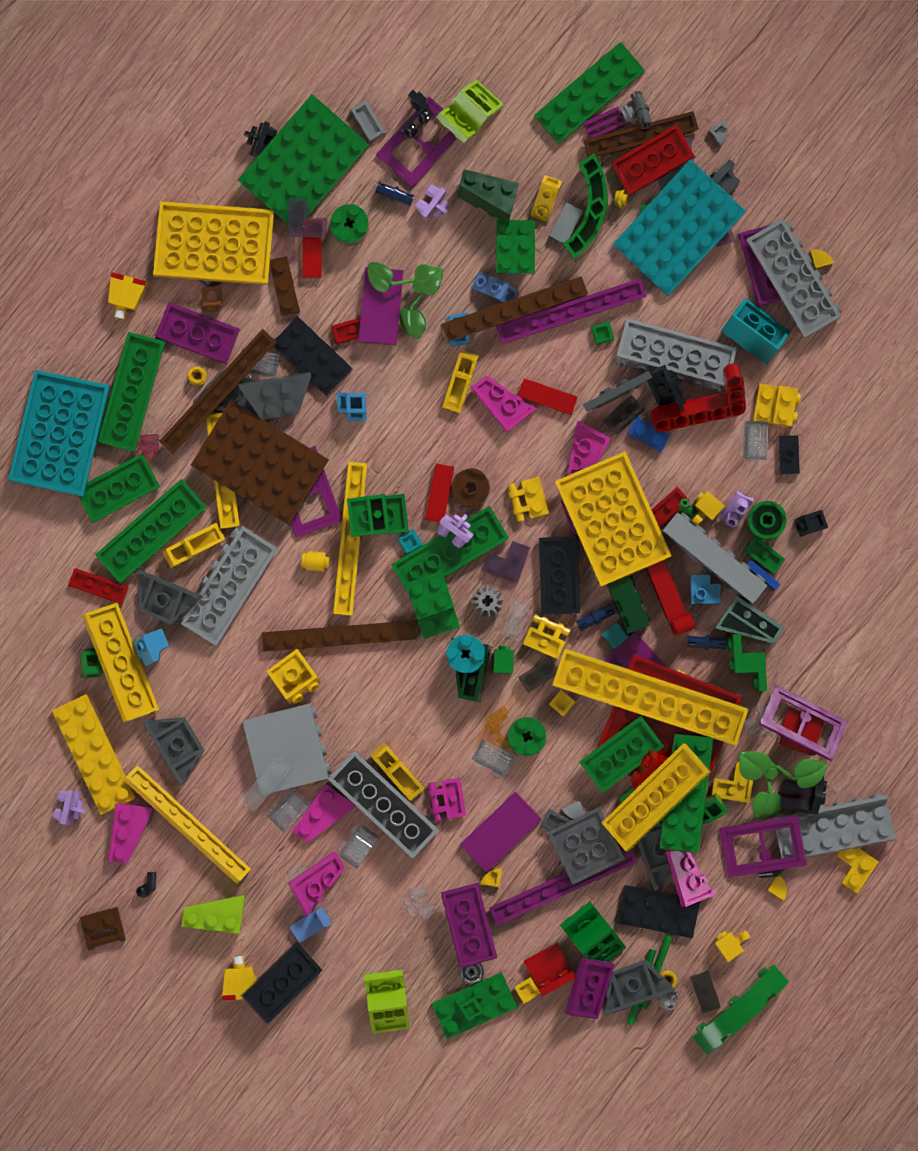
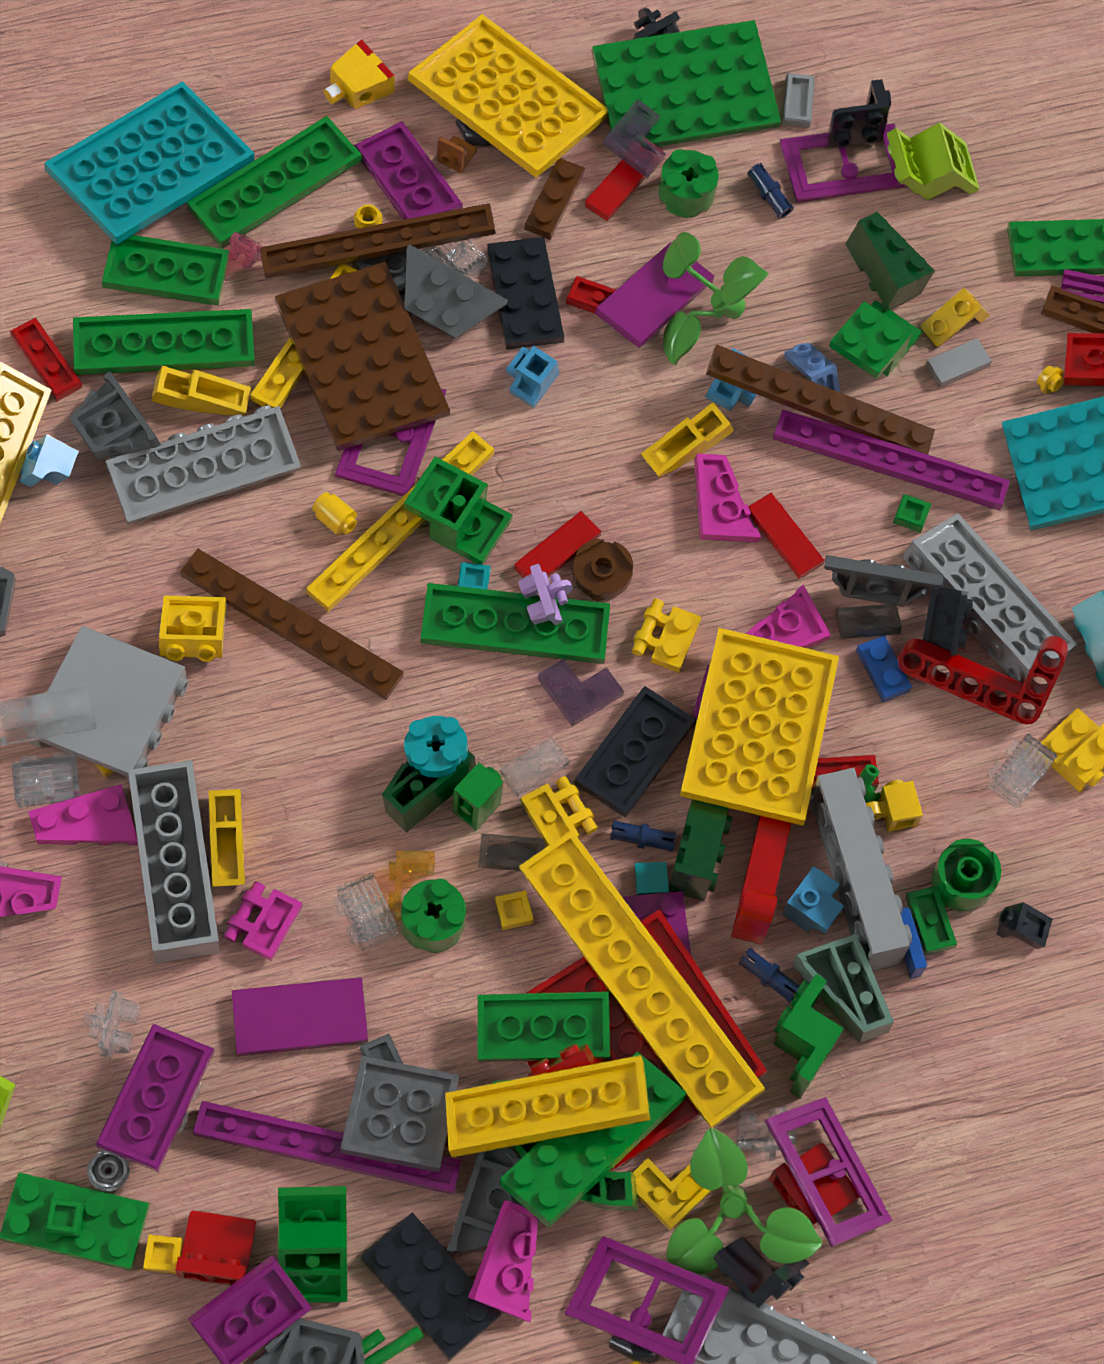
camera: 35 degrees right, 20 degrees down
(358, 845) = (97, 890): clear brick -> none
(427, 209) = (811, 232): lavender hips -> none
(432, 604) = (441, 664): green bracket -> none
(482, 597) = (522, 722): light grey gear -> none
(492, 878) = (238, 1069): yellow tile -> none
(574, 810) = (421, 1057): light grey tile -> none
(595, 212) = (983, 383): green brick -> none
(736, 509) = (936, 832): lavender hips -> none
(789, 454) = (1054, 822): black plate -> none

